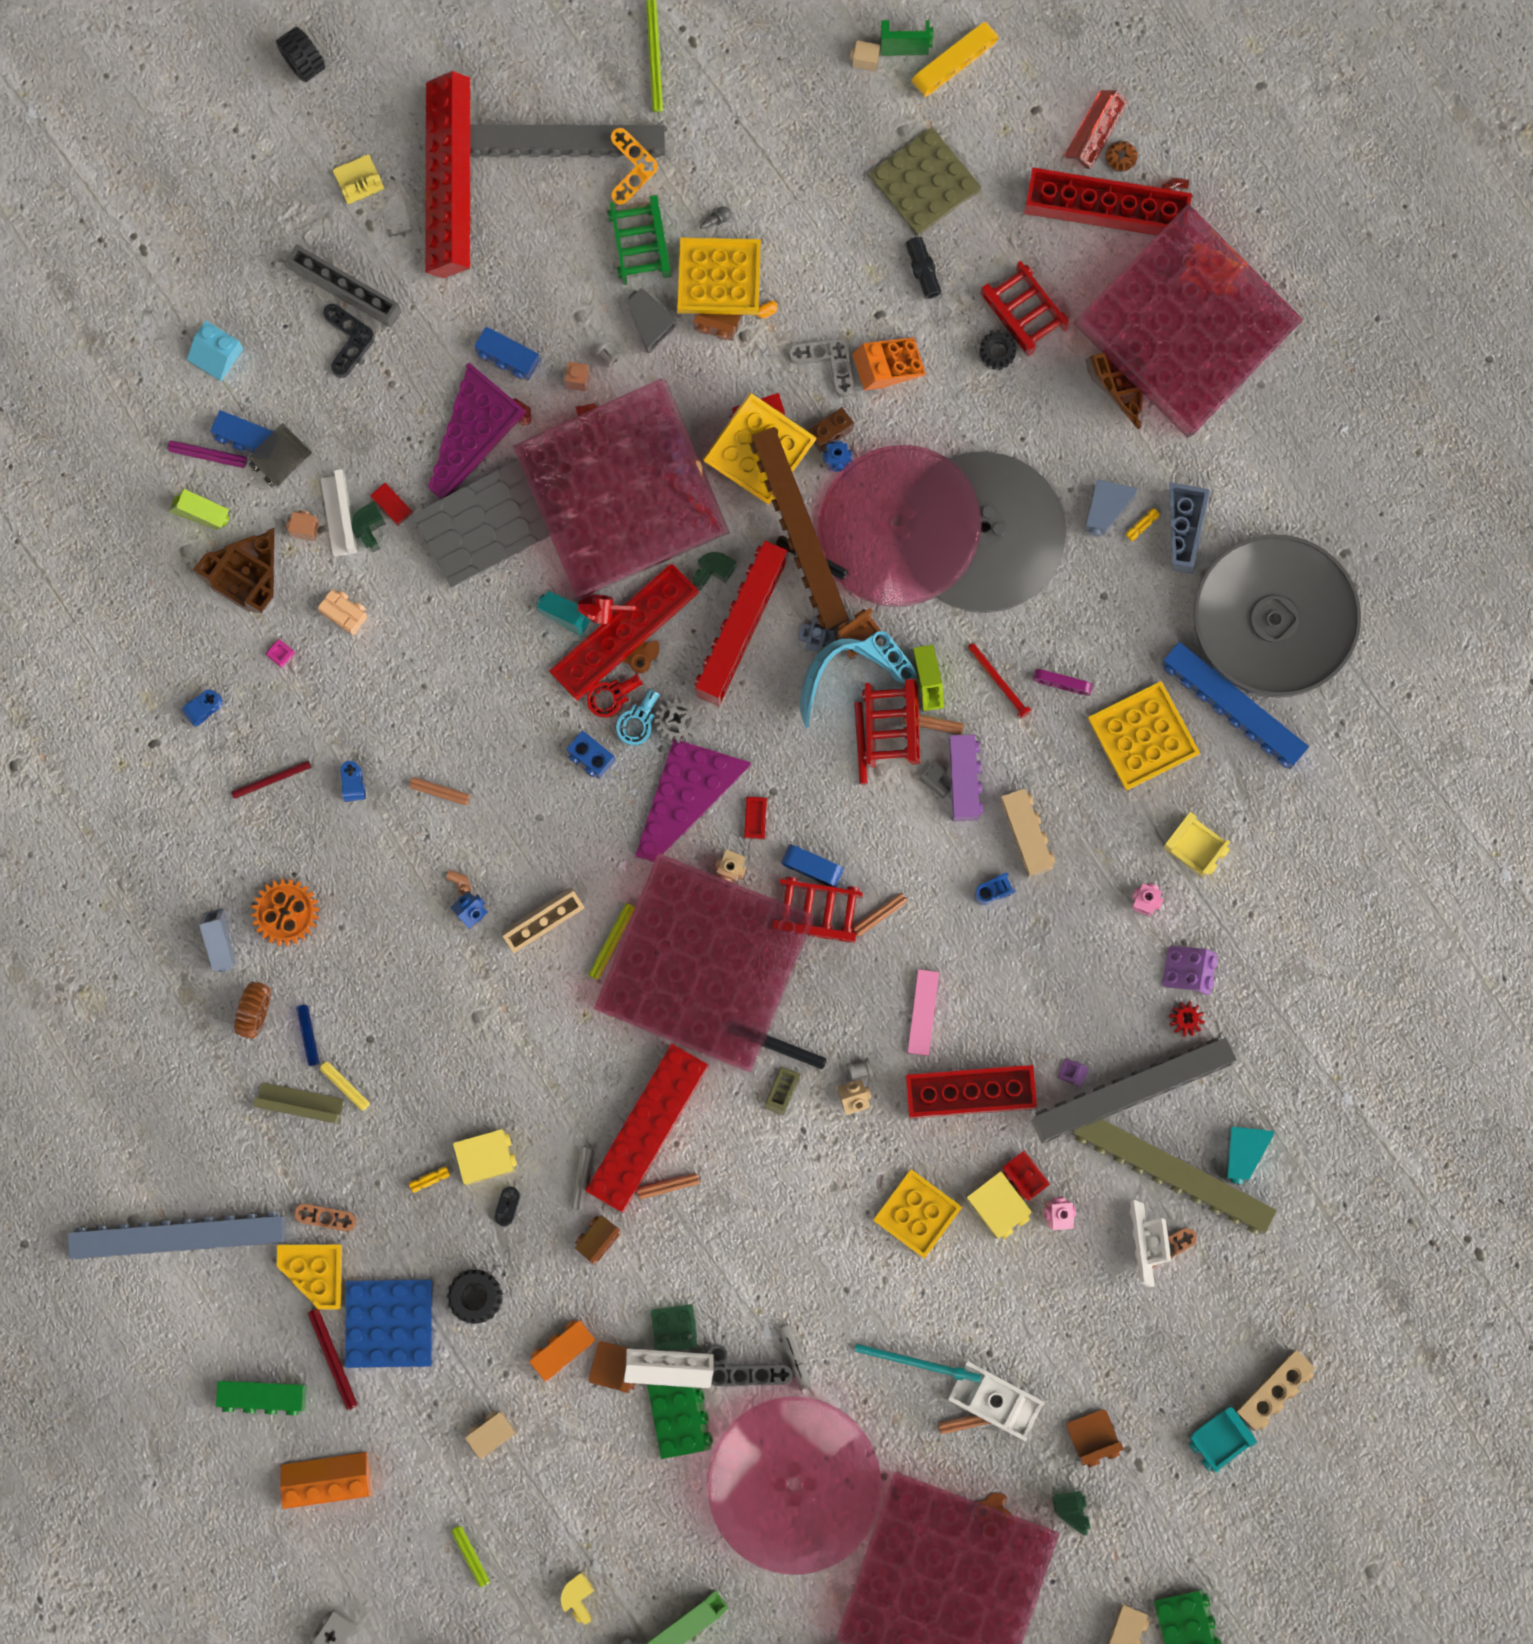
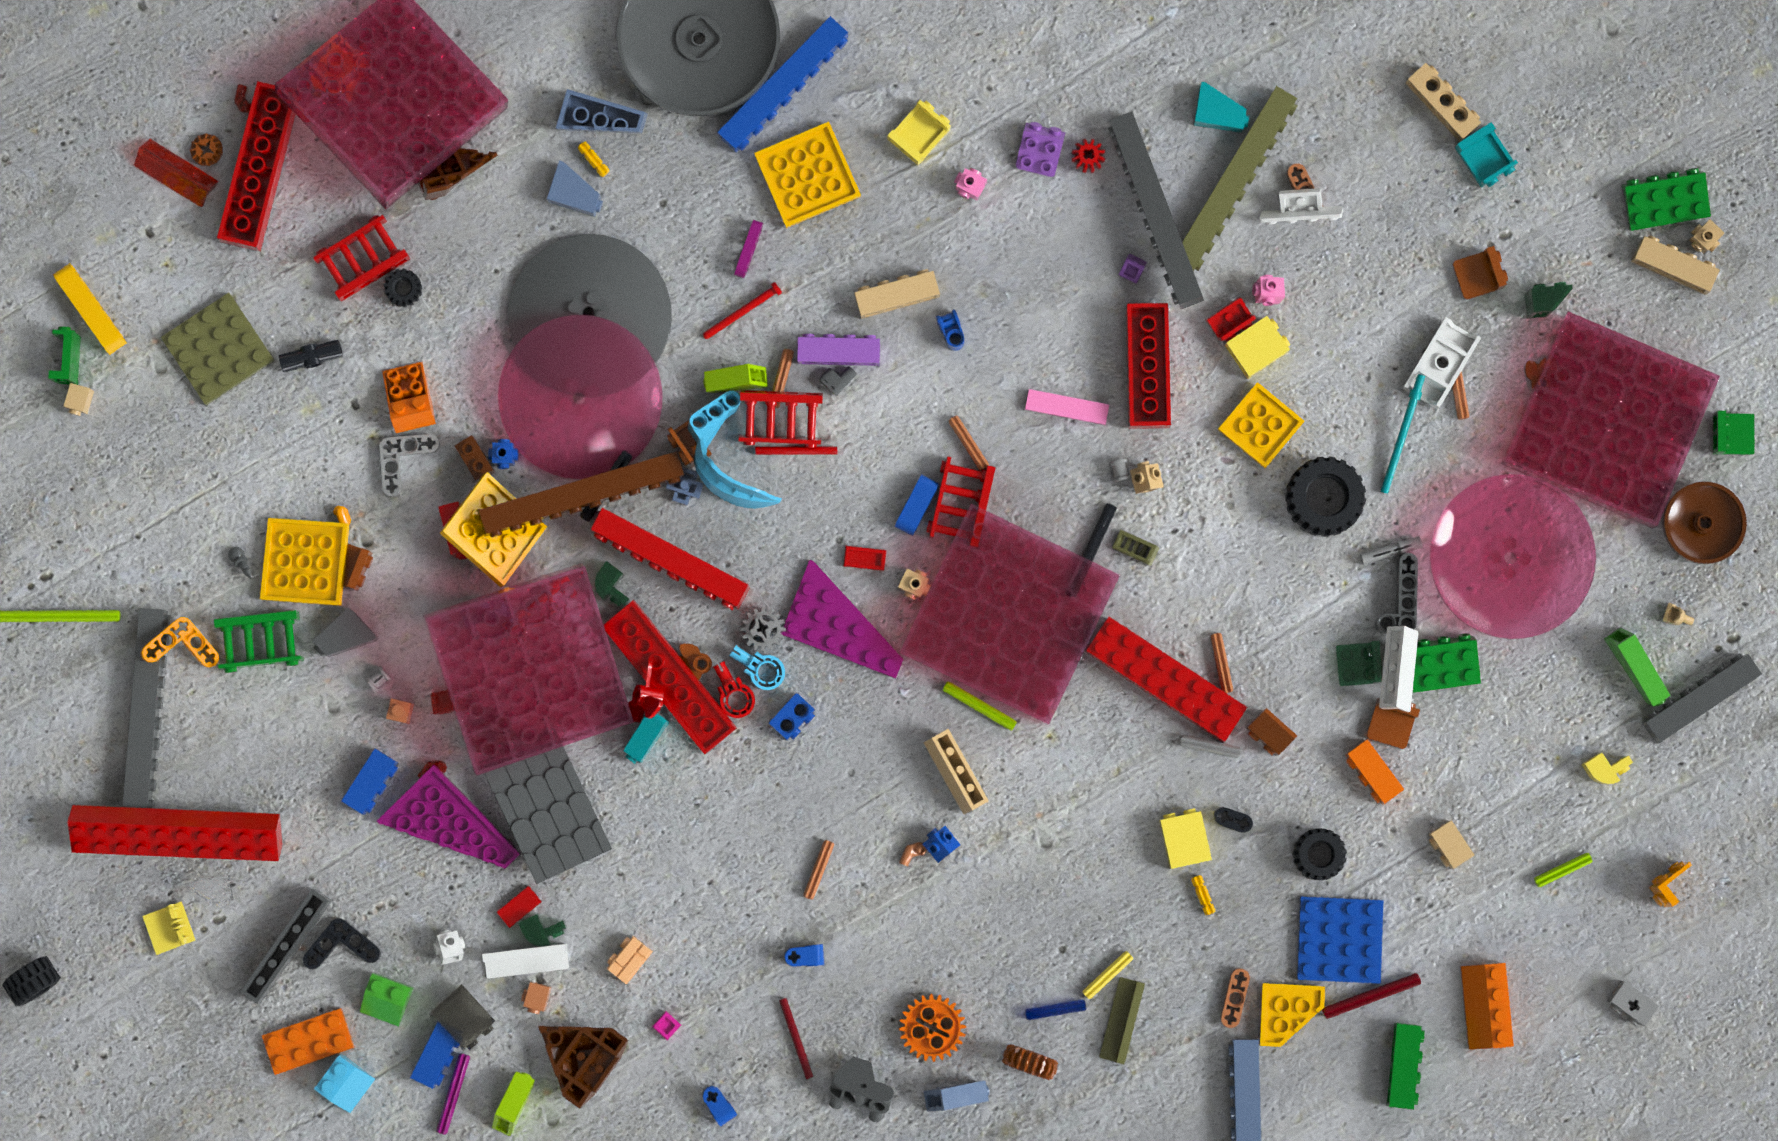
camera: 90 degrees left, 5 degrees up
(222, 838) = (858, 1080): none -> dark grey piece
(254, 315) = (308, 1041): none -> orange plate
(297, 384) = (386, 999): none -> bright green slope
(342, 440) = (449, 946): none -> white brick
(846, 1313) = (1348, 480): none -> black tyre

